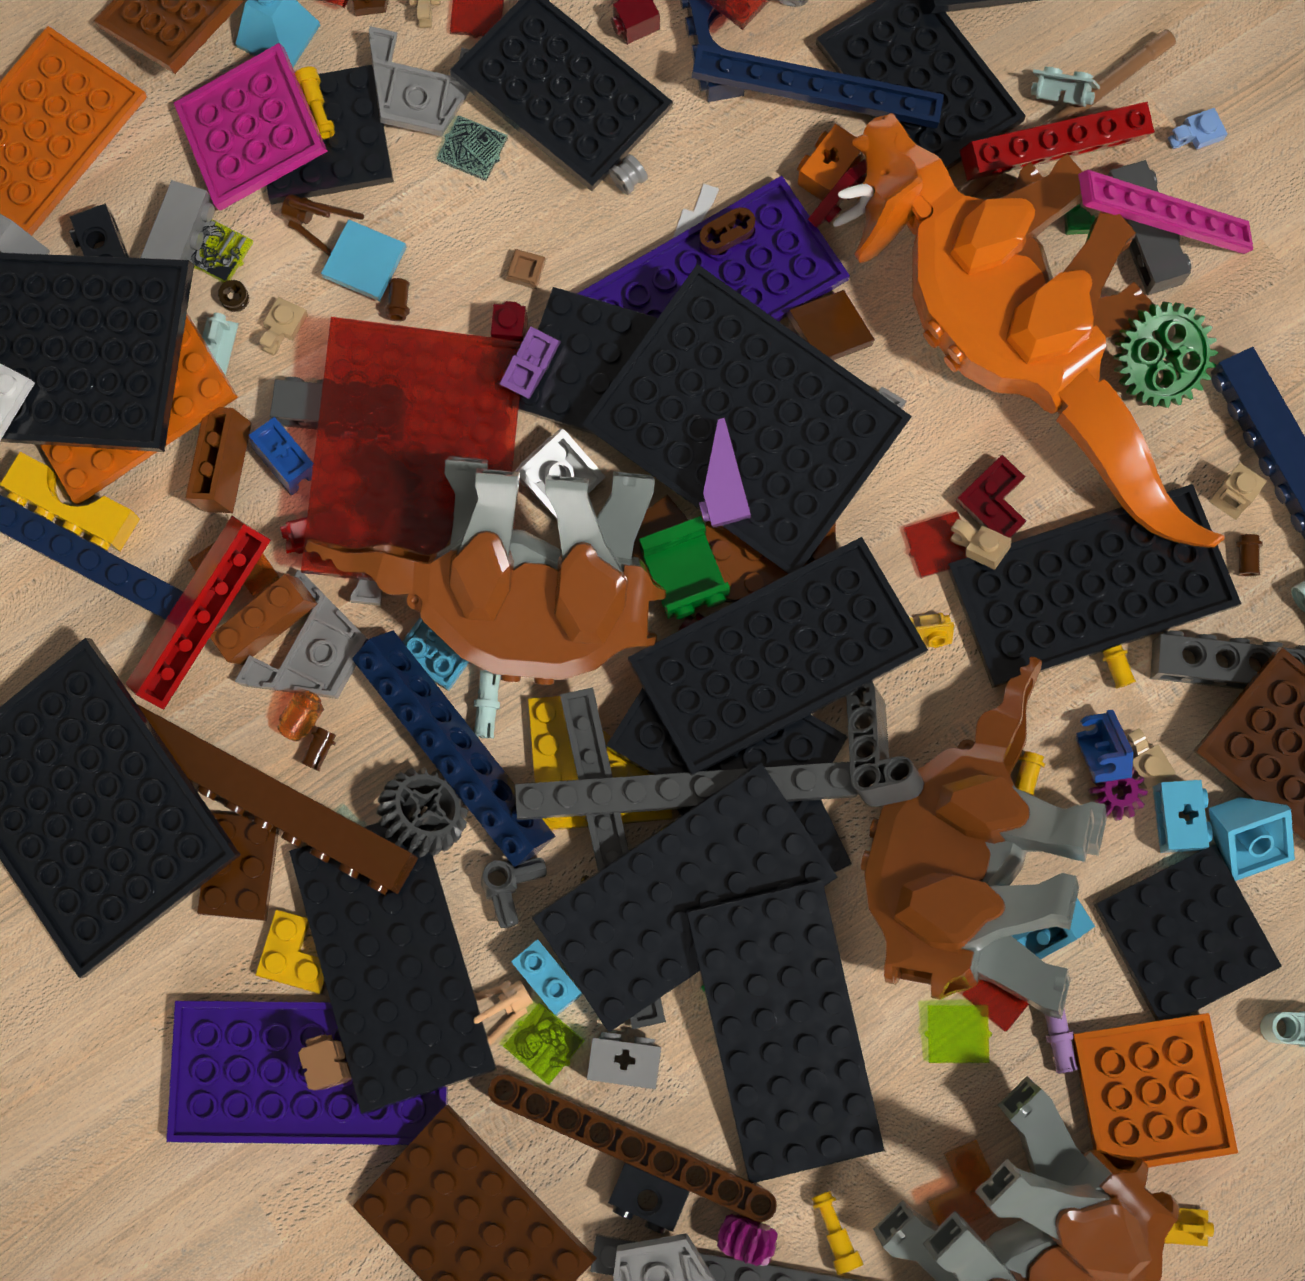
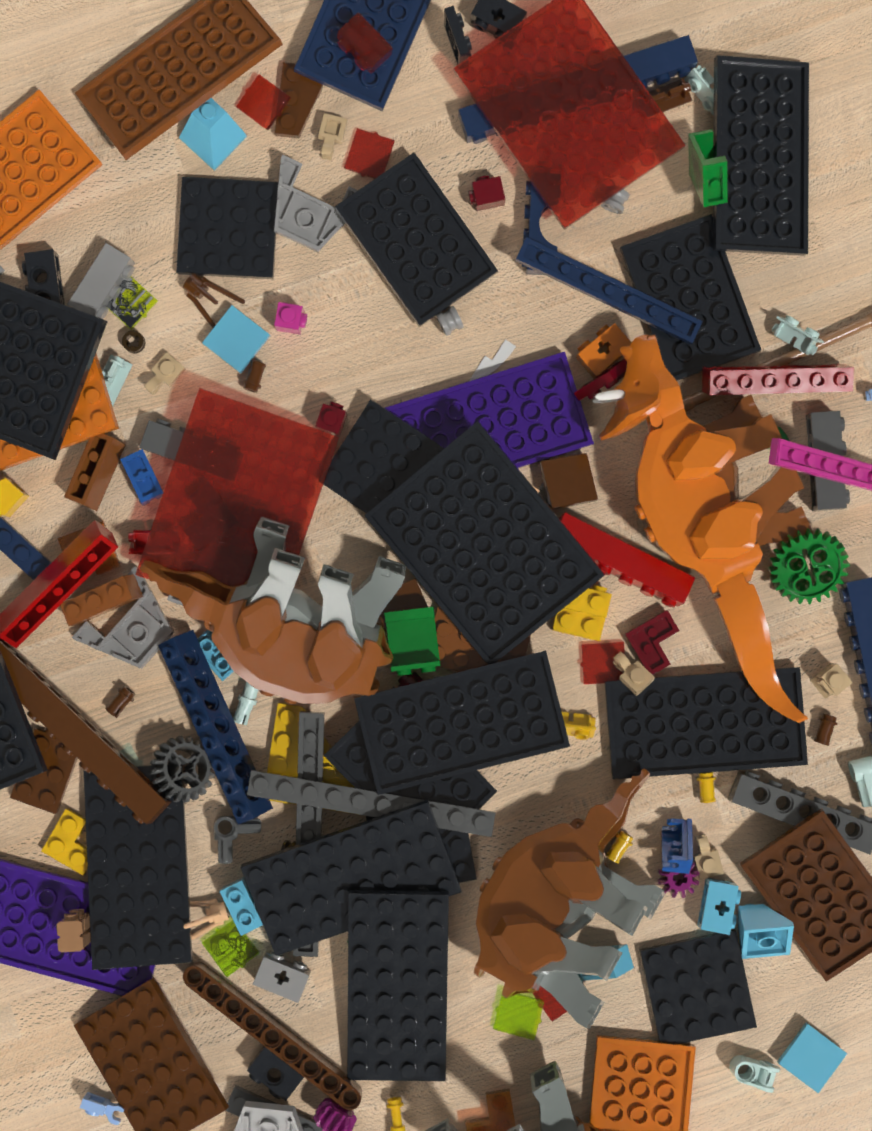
camera: 15 degrees right, 10 degrees up
(250, 127) = (174, 213): dark pink plate -> none
(300, 715) = (112, 675): clear orange brick -> none
(309, 82) = (226, 199): yellow piece -> none
(426, 217) = (290, 318): none -> dark pink brick
(472, 148) = (338, 267): clear light blue piece -> none
(525, 269) = (355, 374): medium nougat tile -> none
(530, 362) = (338, 455): medium lavender slope -> none
(559, 457) = (340, 541): white slope -> none
(723, 225) = (508, 382): reddish brown beam -> none
(723, 487) = (454, 595): medium lavender slope -> none
(870, 753) = (513, 774): dark grey beam -> none
(896, 487) = (585, 614): none -> yellow plate
(948, 408) = (631, 564): none -> red brick
(1061, 1044) = (587, 1043): lavender pin -> none

